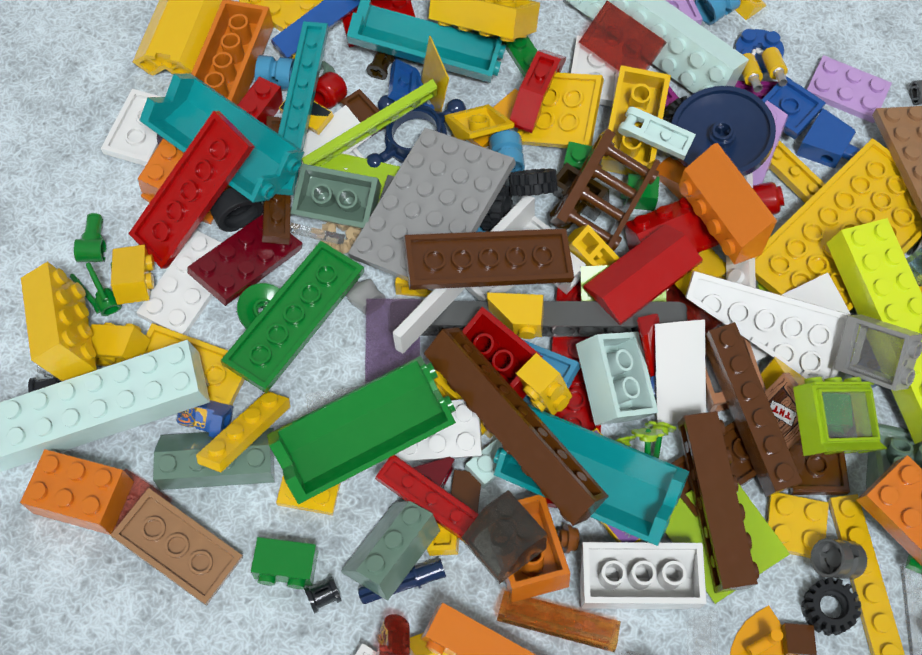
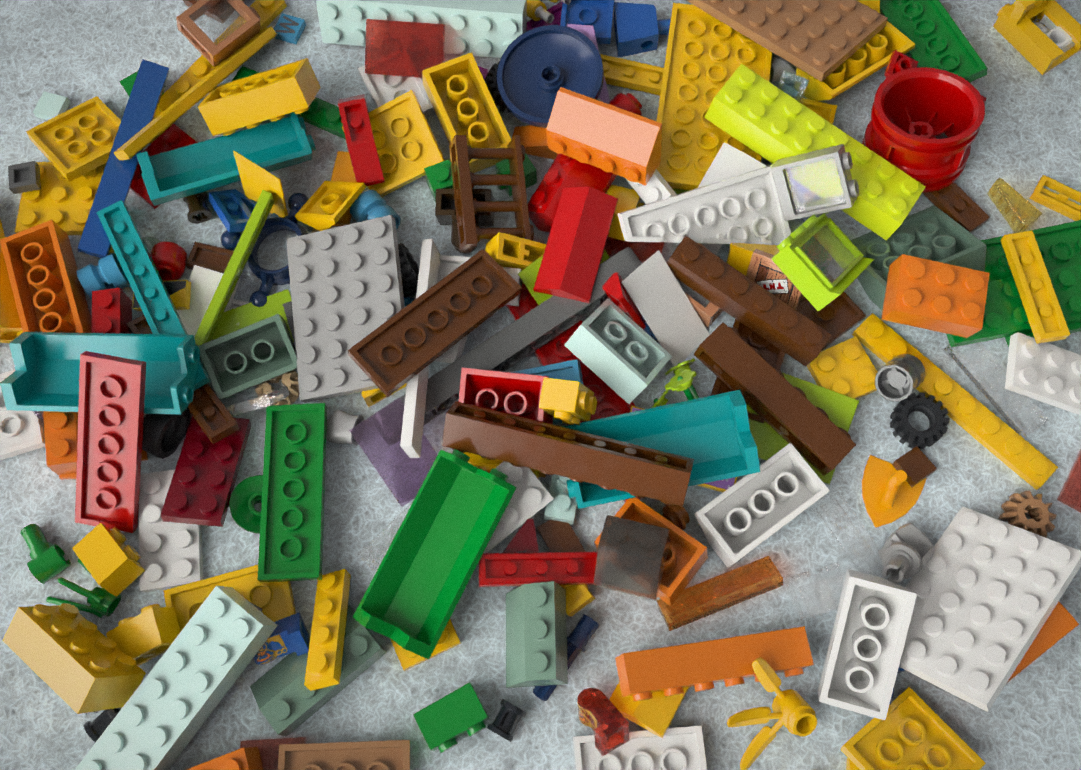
camera: 30 degrees left, 5 degrees up
(518, 312) = (496, 351): yellow slope -> none
(533, 182) = (421, 225): black tyre -> none
(657, 132) = (496, 111): light aqua plate -> none

